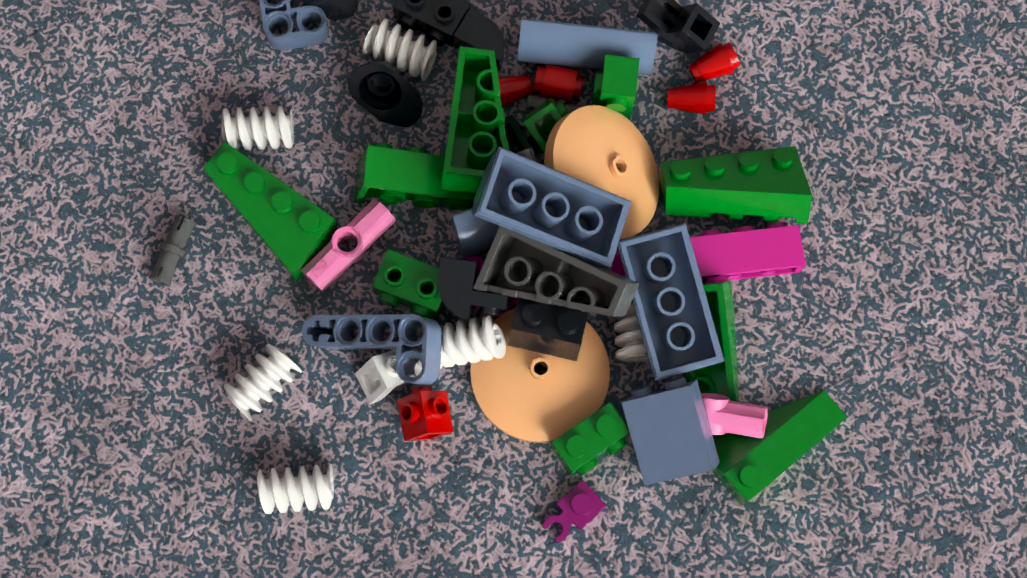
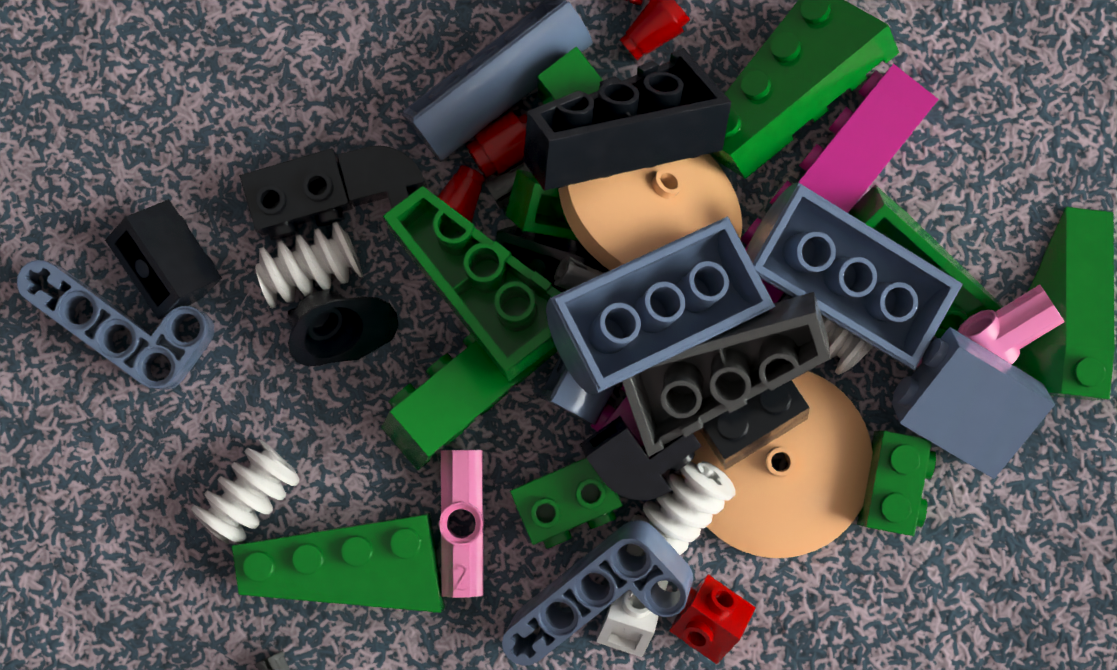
camera: 45 degrees left, 10 degrees up
(577, 508) = (942, 556): magenta plate -> none
(625, 115) = (627, 124): none -> black wedge

